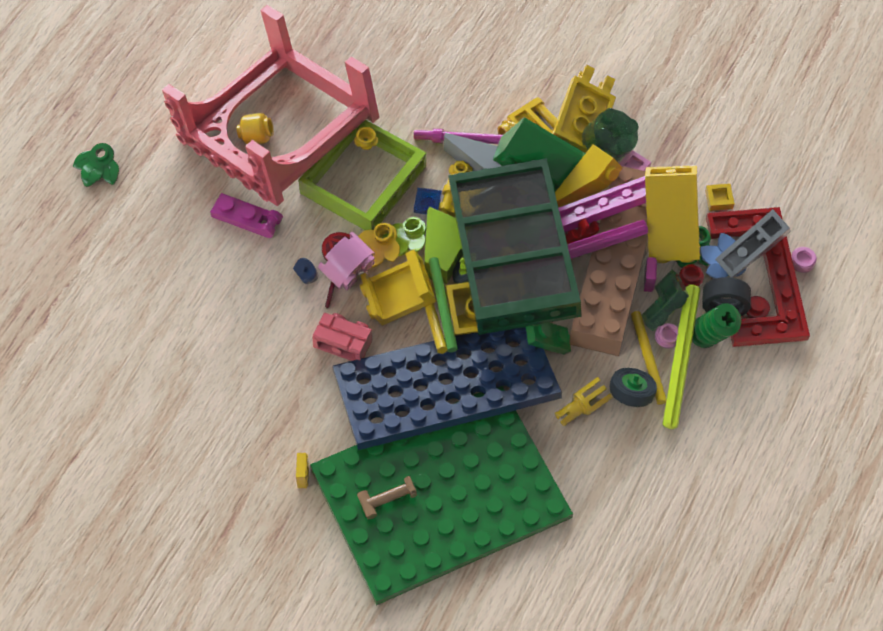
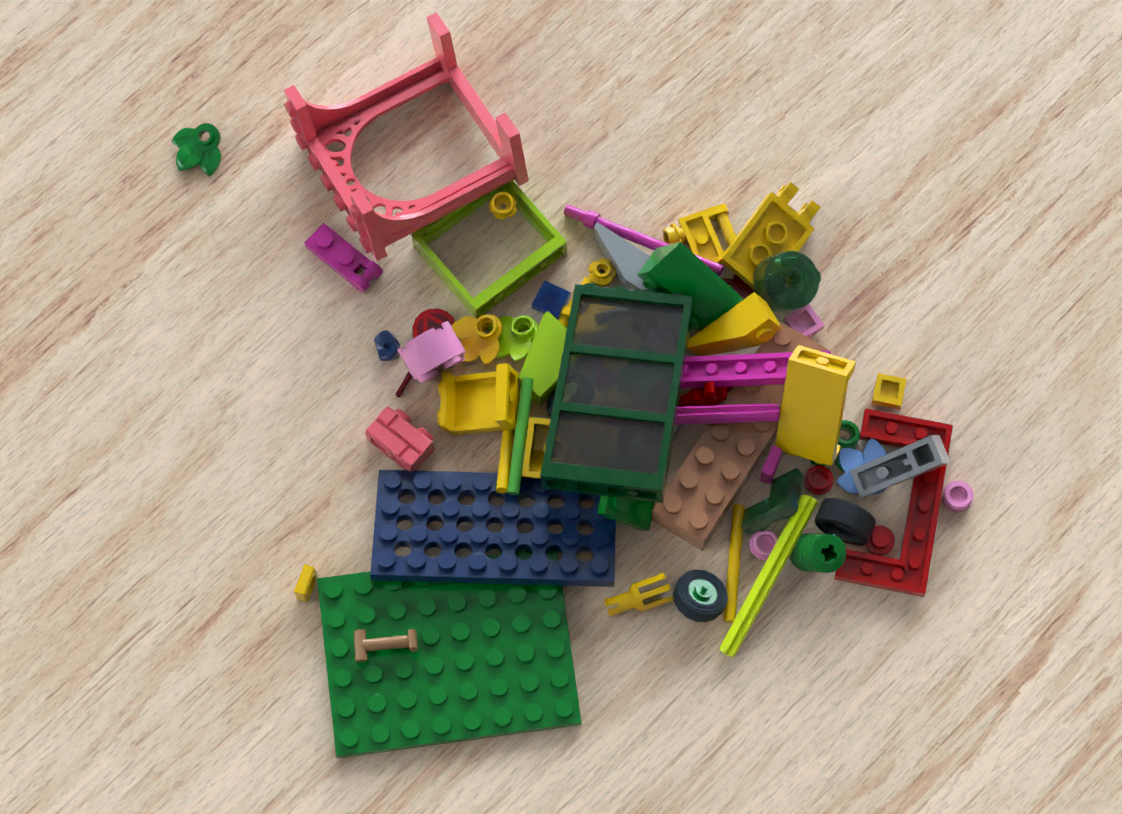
camera: 20 degrees right, 10 degrees up
(255, 128) = (386, 154): yellow head -> none

